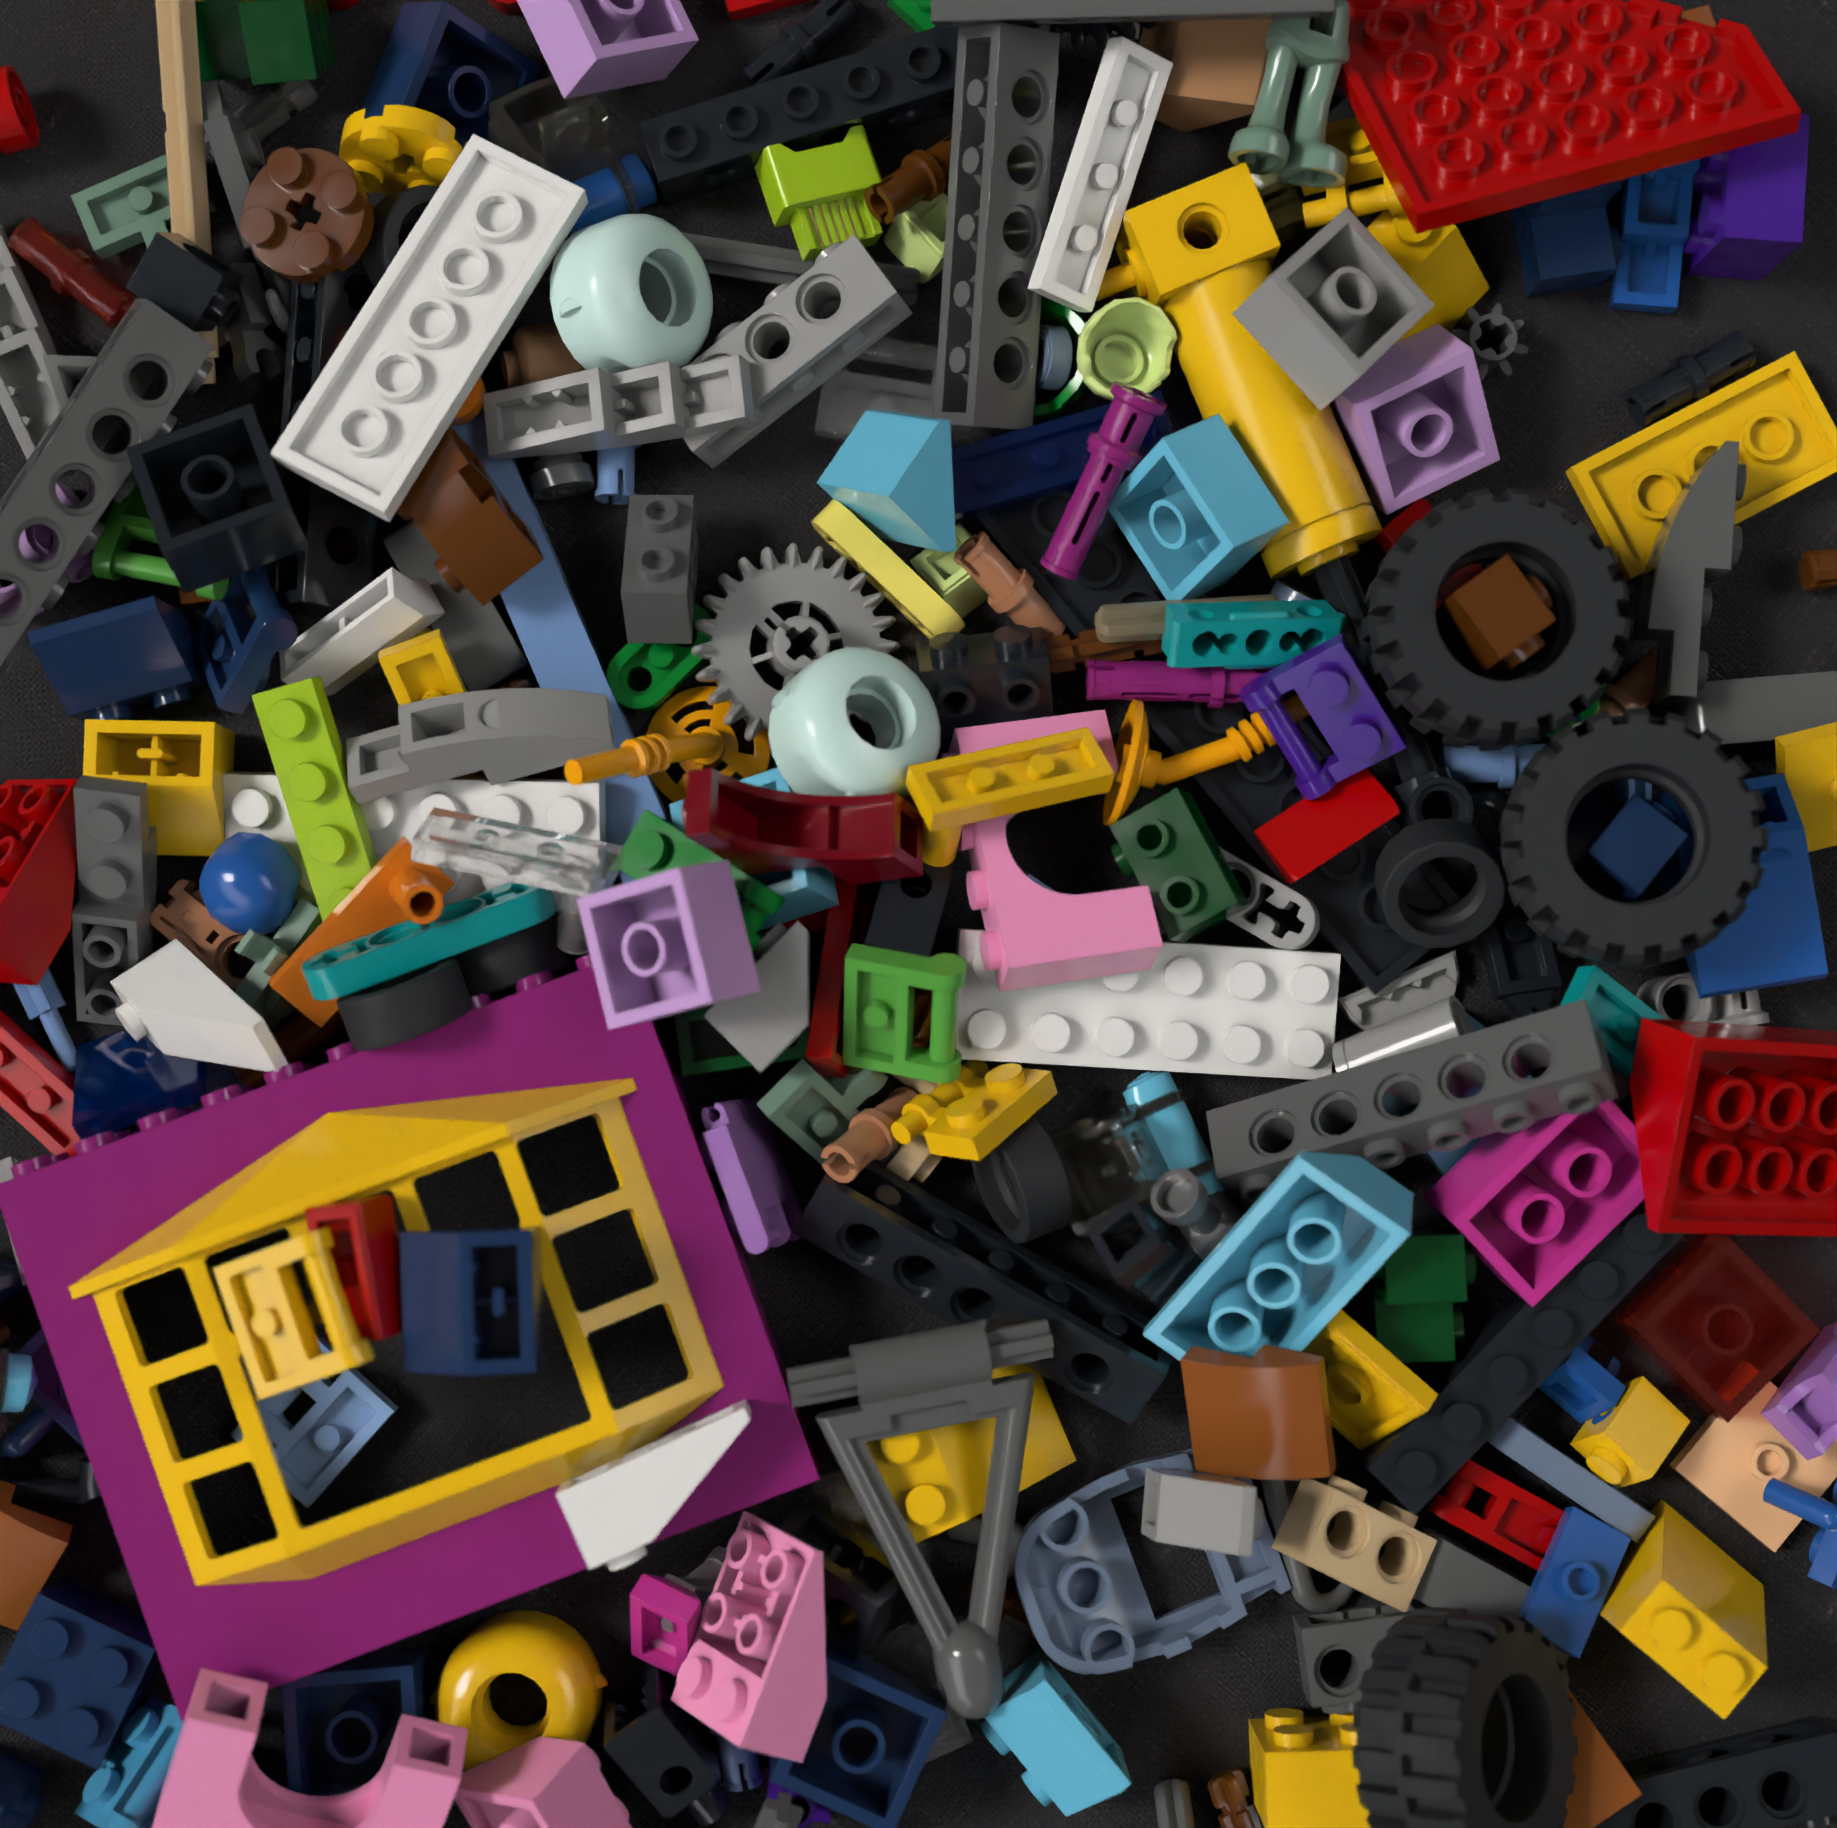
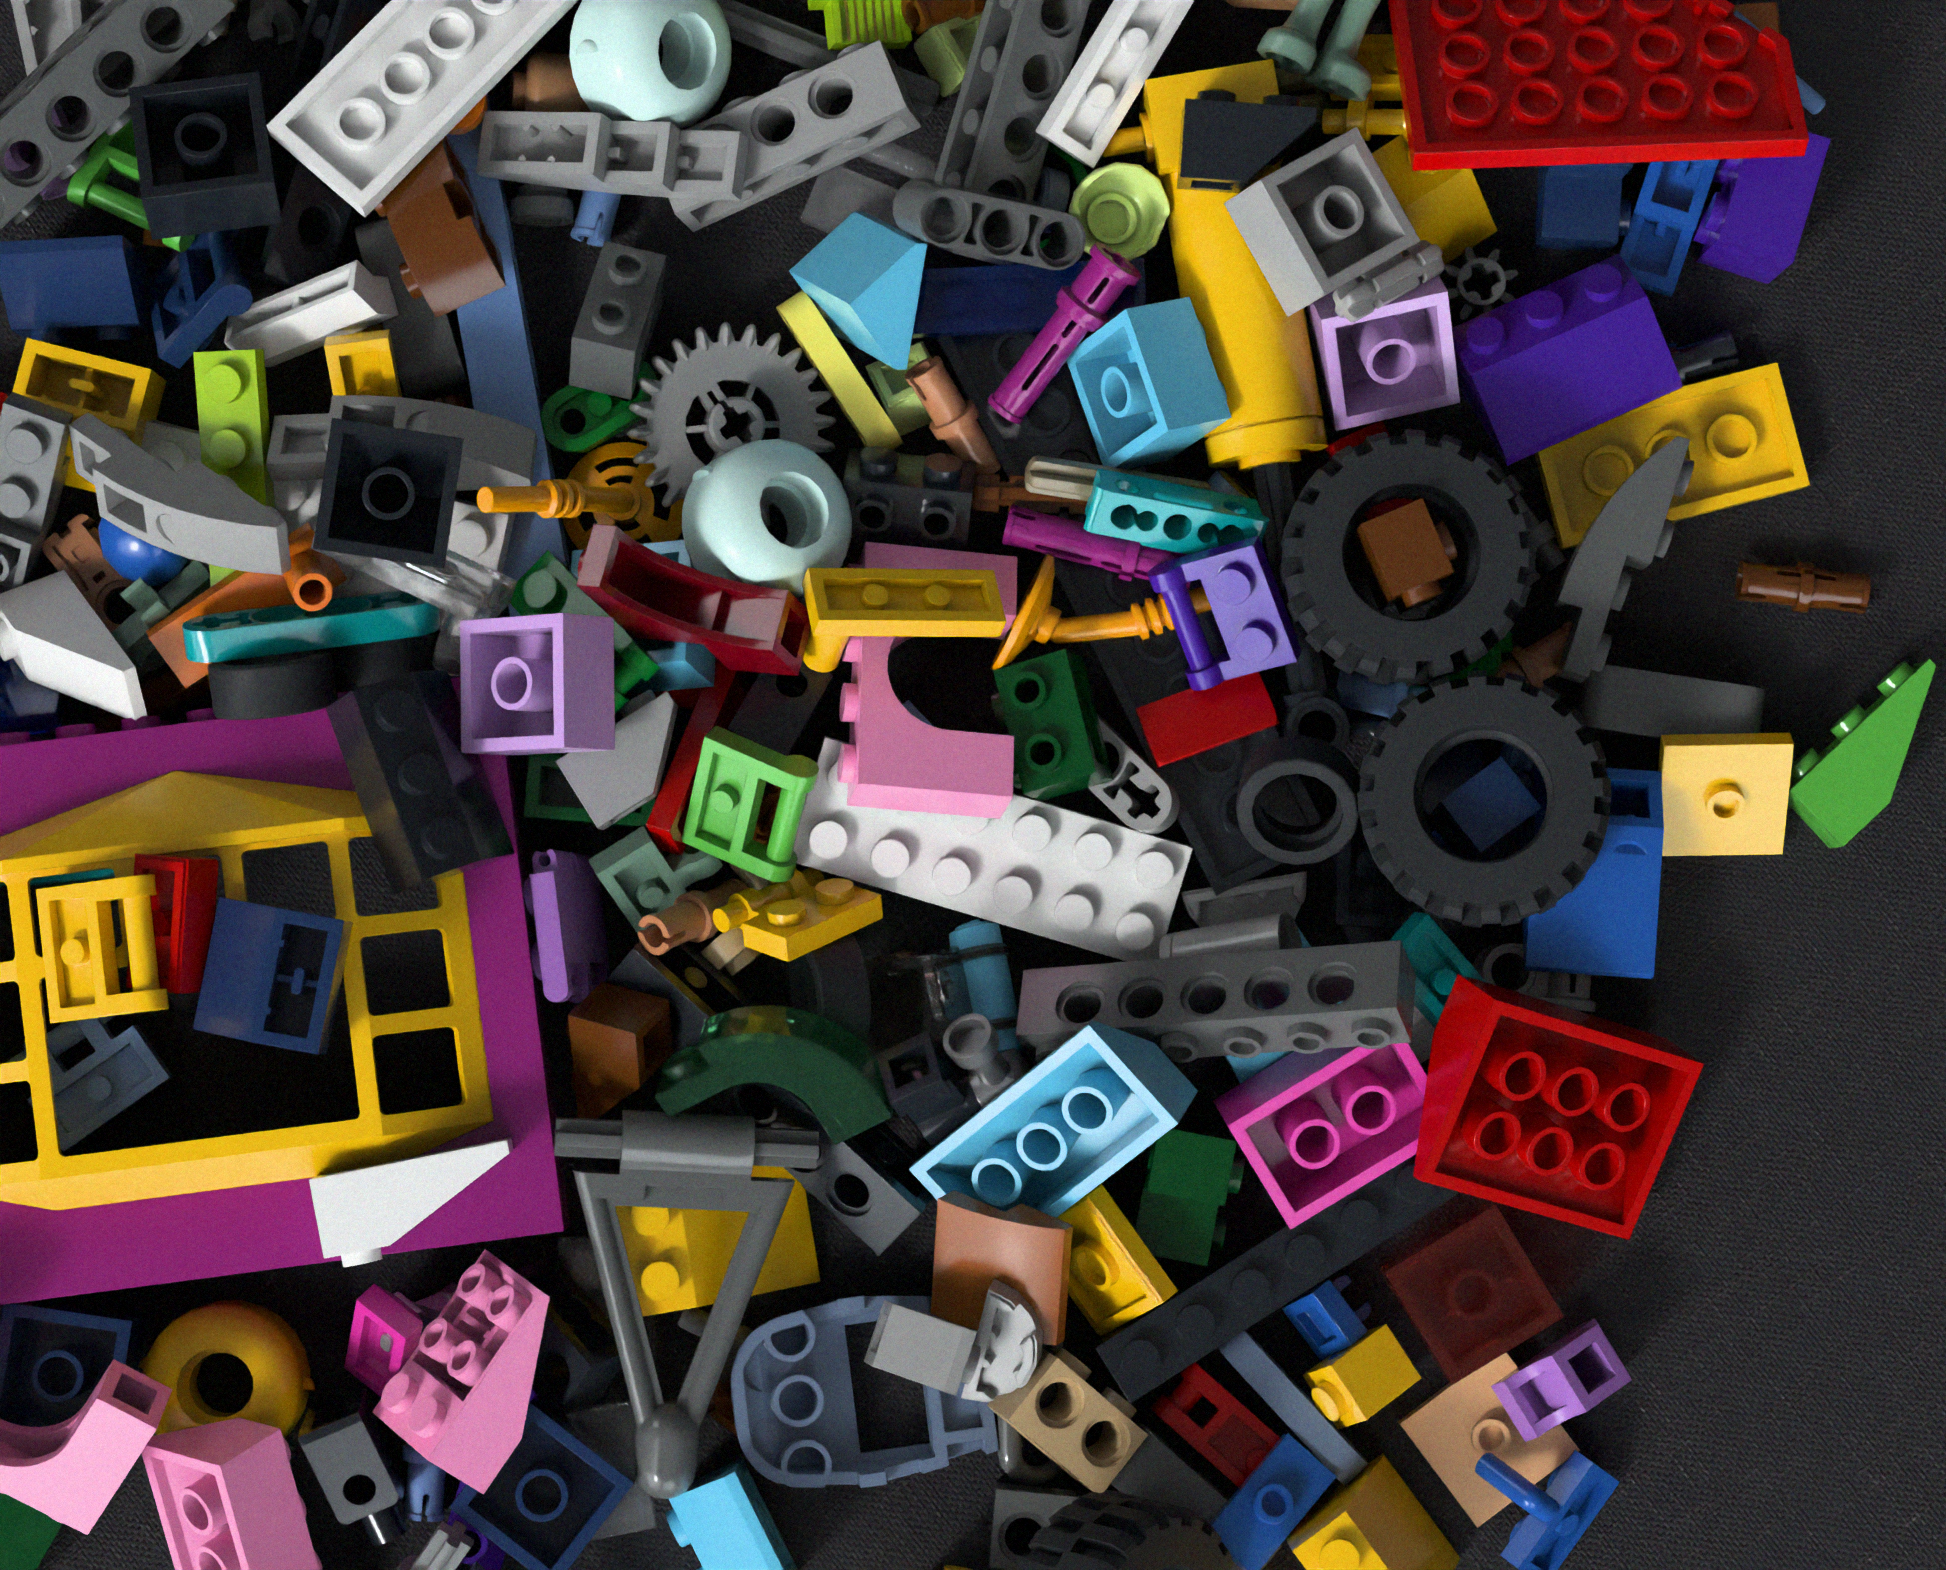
camera: 10 degrees right, 0 degrees up
(273, 855) = (178, 511): none -> light grey slope
(475, 788) = (388, 493): none -> black slope
(571, 1075) = (417, 789): none -> black slope
(826, 1280) = (616, 1045): none -> reddish brown slope
(979, 384) = (1013, 236): none -> dark grey beam
(1000, 1249) = (784, 1049): none -> clear green arch
(1229, 249) = (1235, 143): none -> black slope
(1284, 1484) = (1008, 1342): none -> light grey tile
(1412, 352) = (1388, 281): none -> light grey axle
(1592, 393) = (1563, 359): none -> dark purple slope

